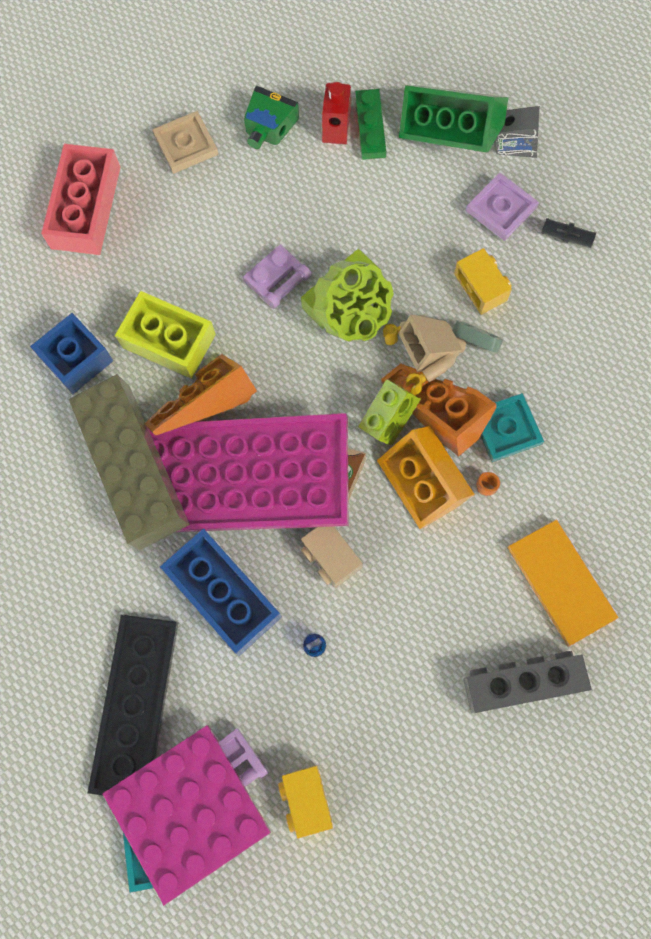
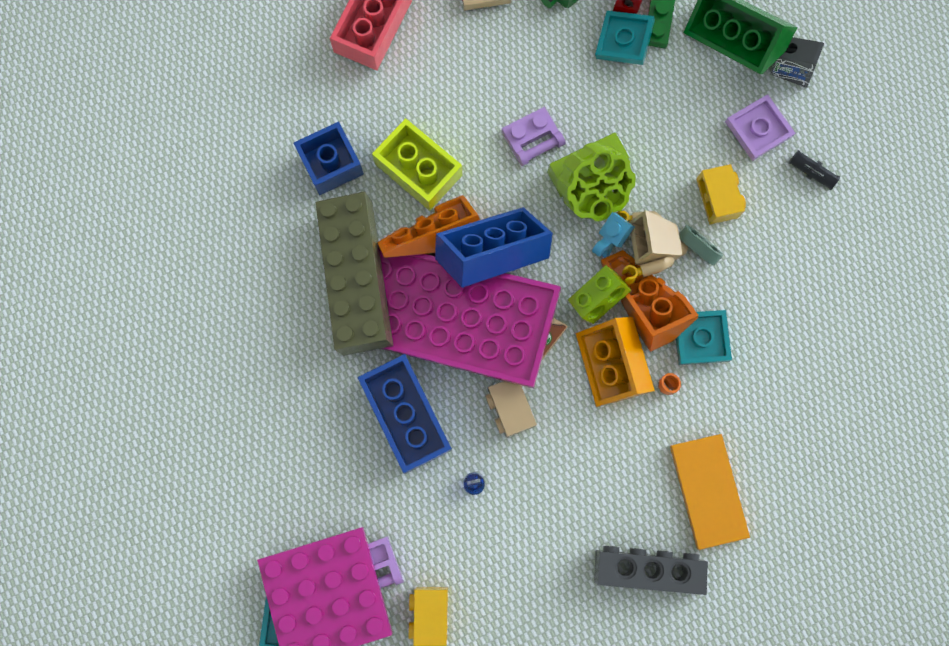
camera: 10 degrees right, 5 degrees up
(133, 700) = (303, 485): black tile -> none
(265, 393) = (492, 246): none -> blue brick
(342, 156) = (625, 37): none -> teal plate
(387, 348) = (615, 233): none -> medium azure plate

